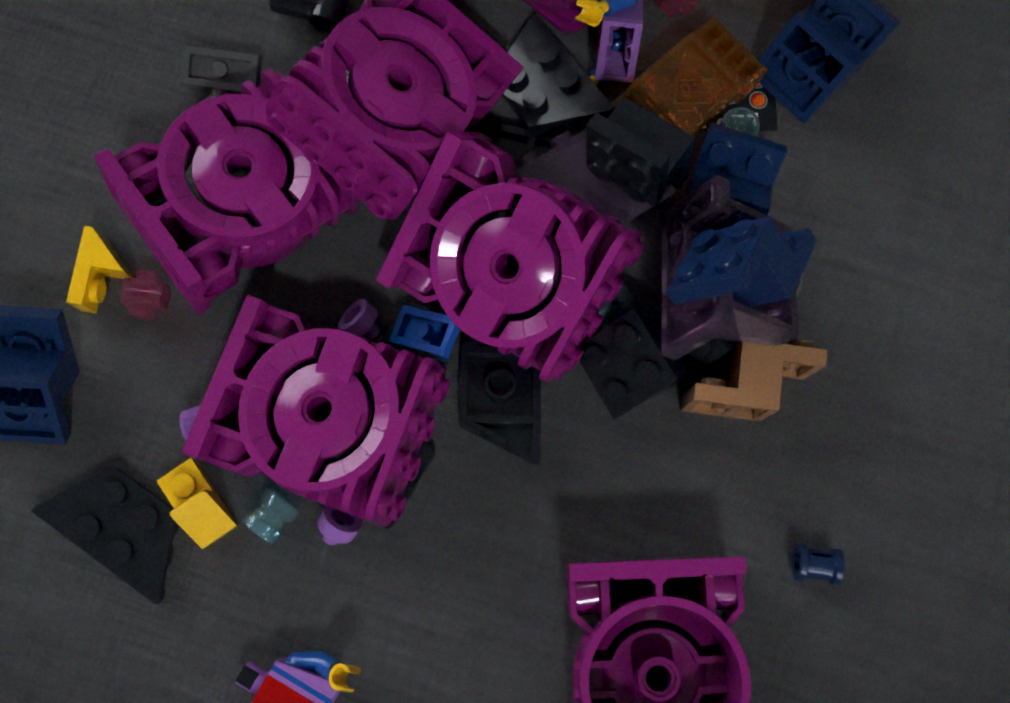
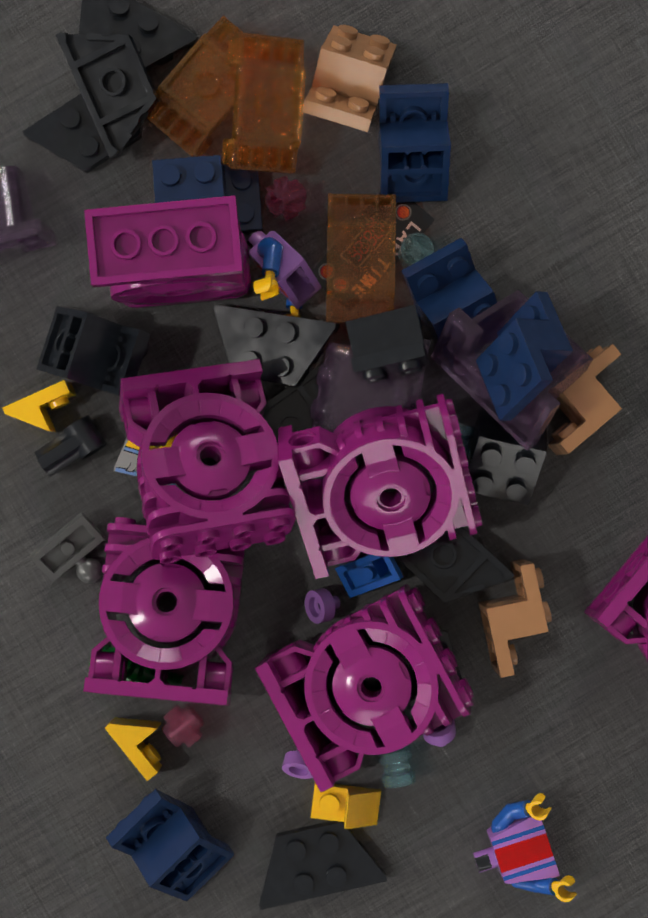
camera: 45 degrees left, 10 degrees up
(502, 493) = (514, 616): none -> medium nougat bracket

